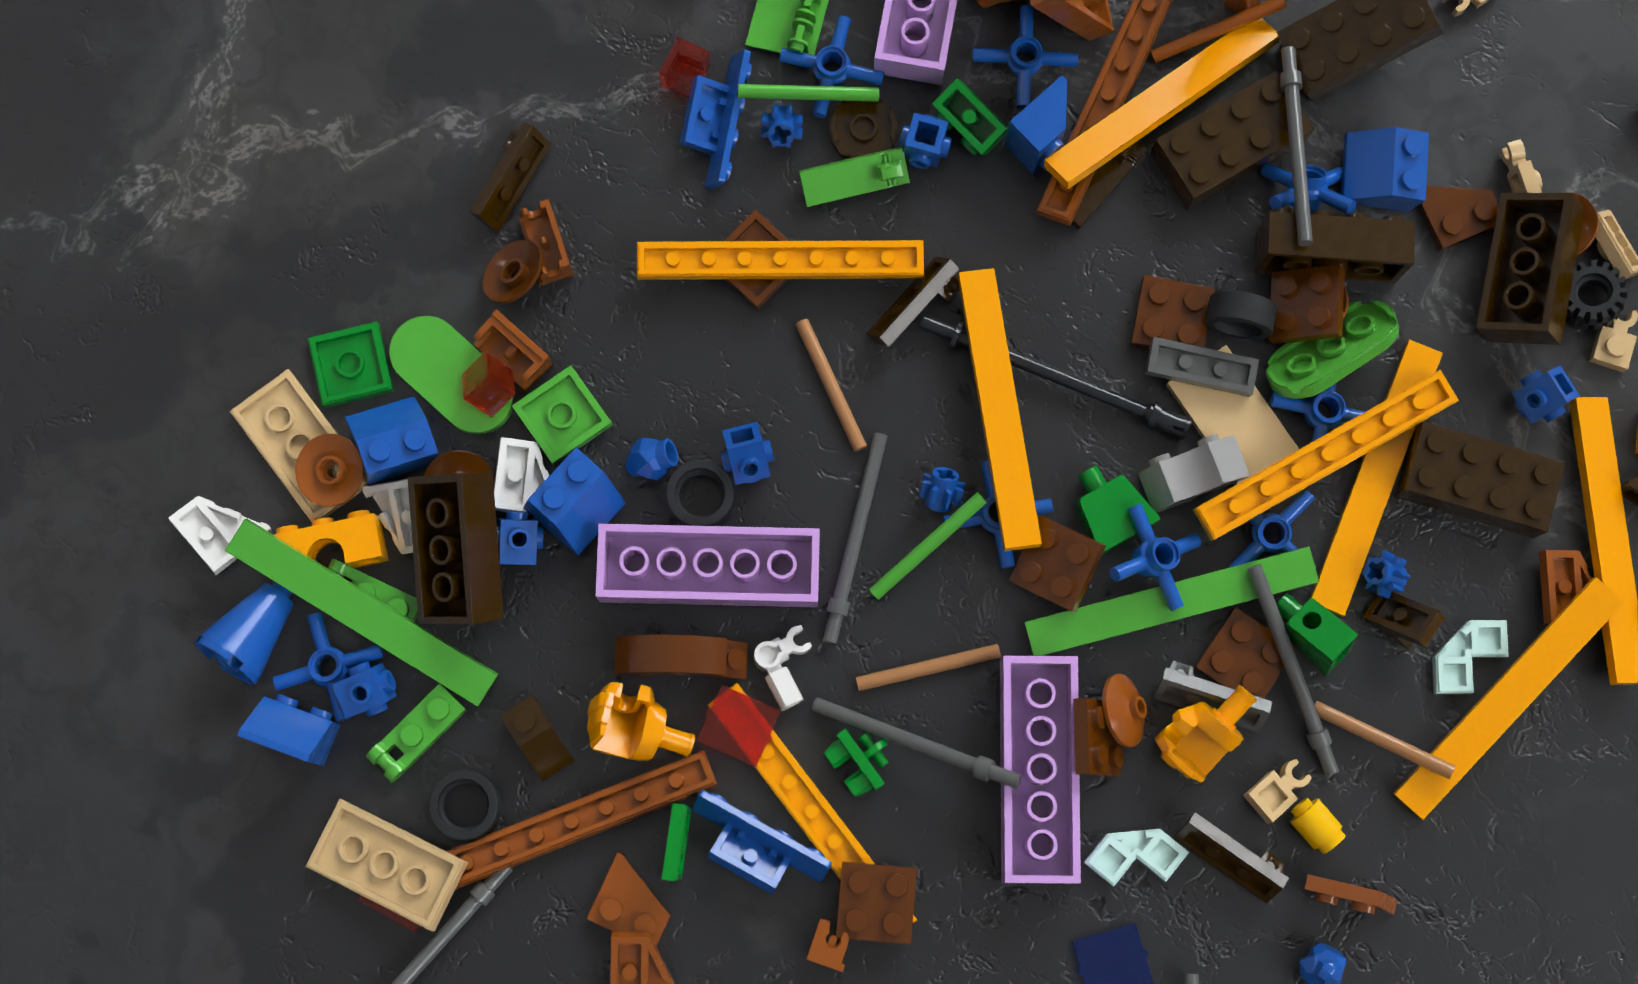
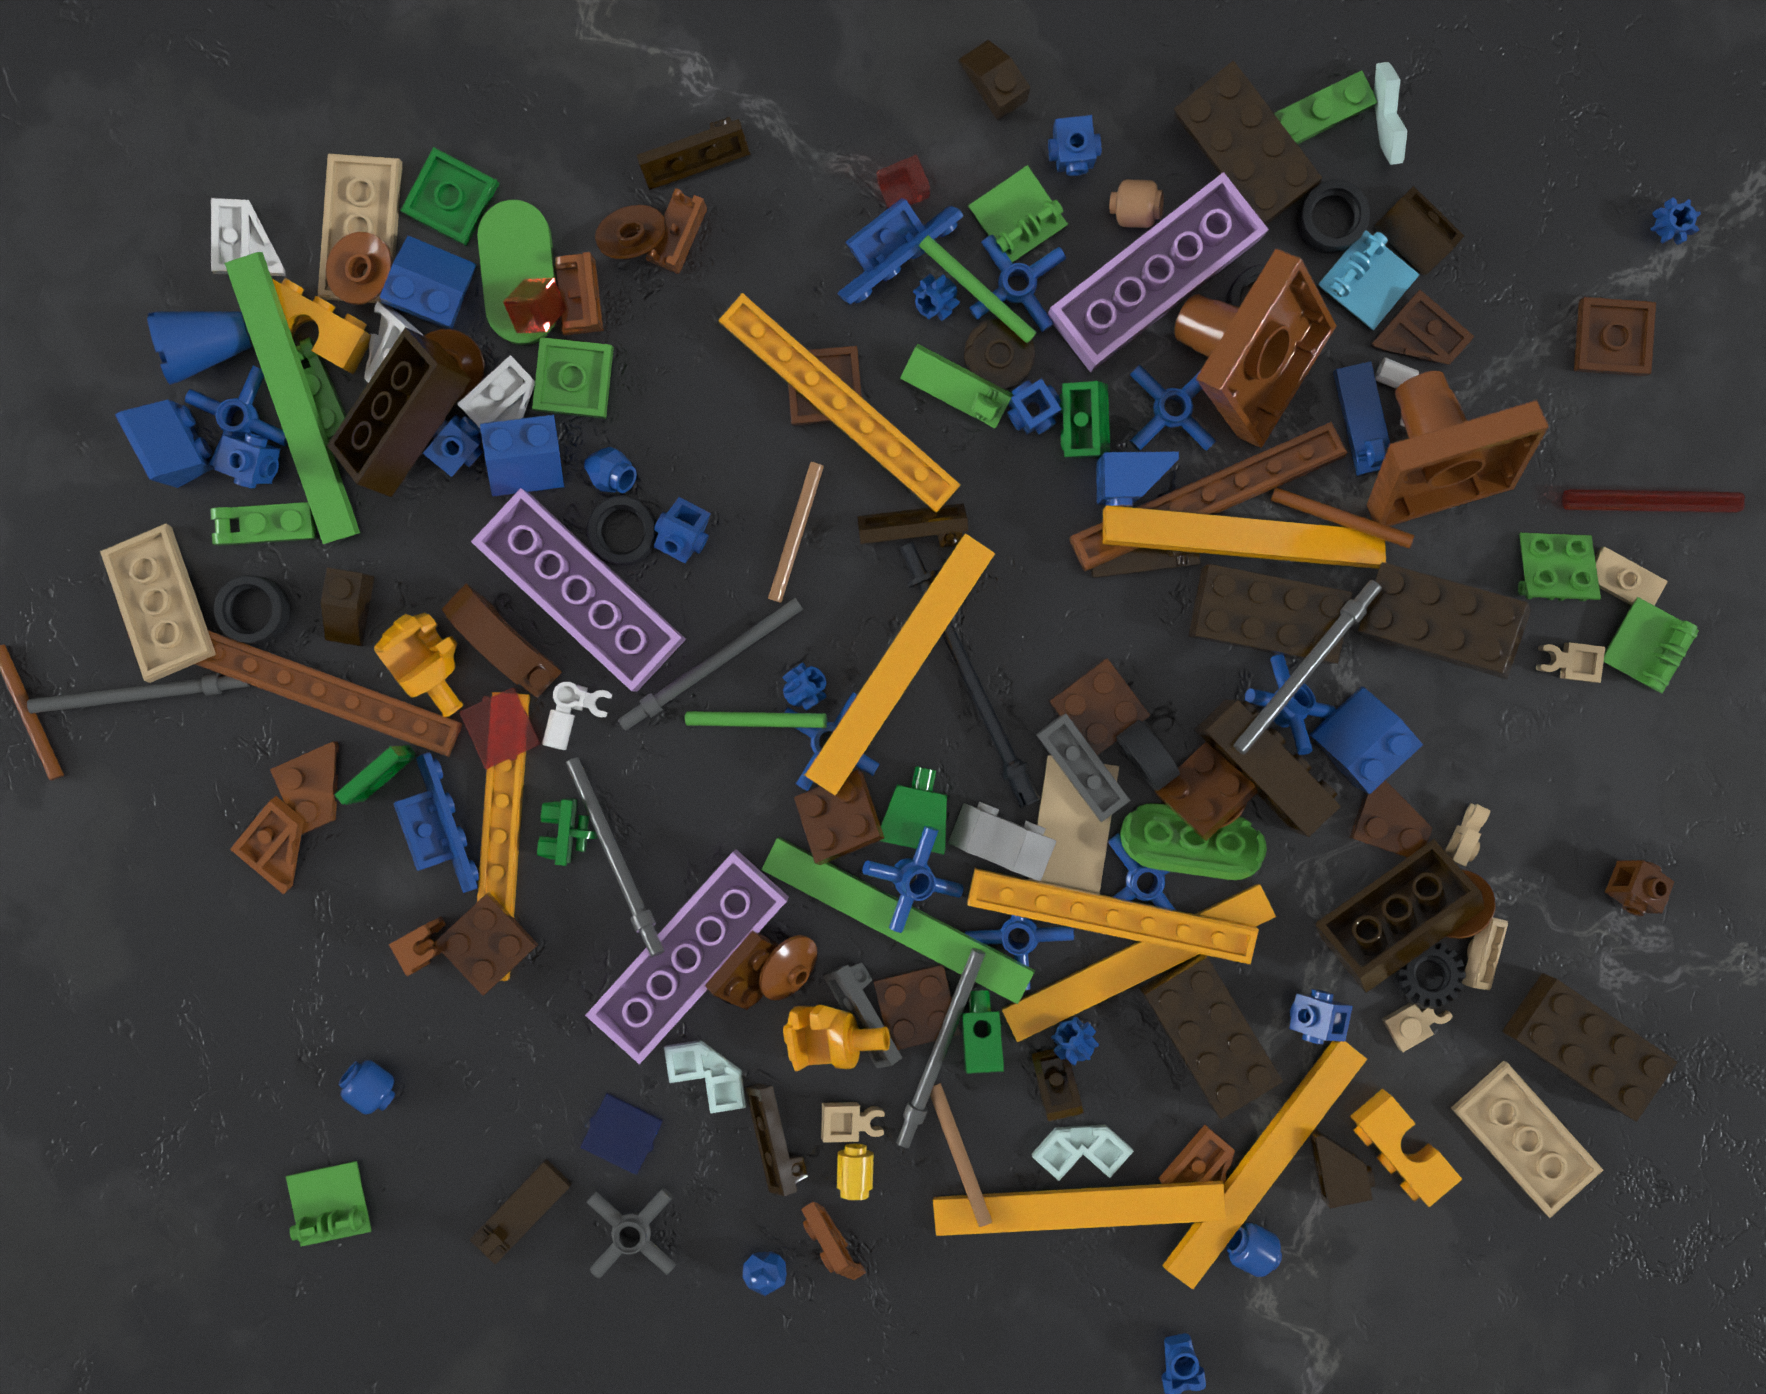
camera: 45 degrees right, 10 degrees up
(928, 667) = (678, 807): medium nougat bar -> none

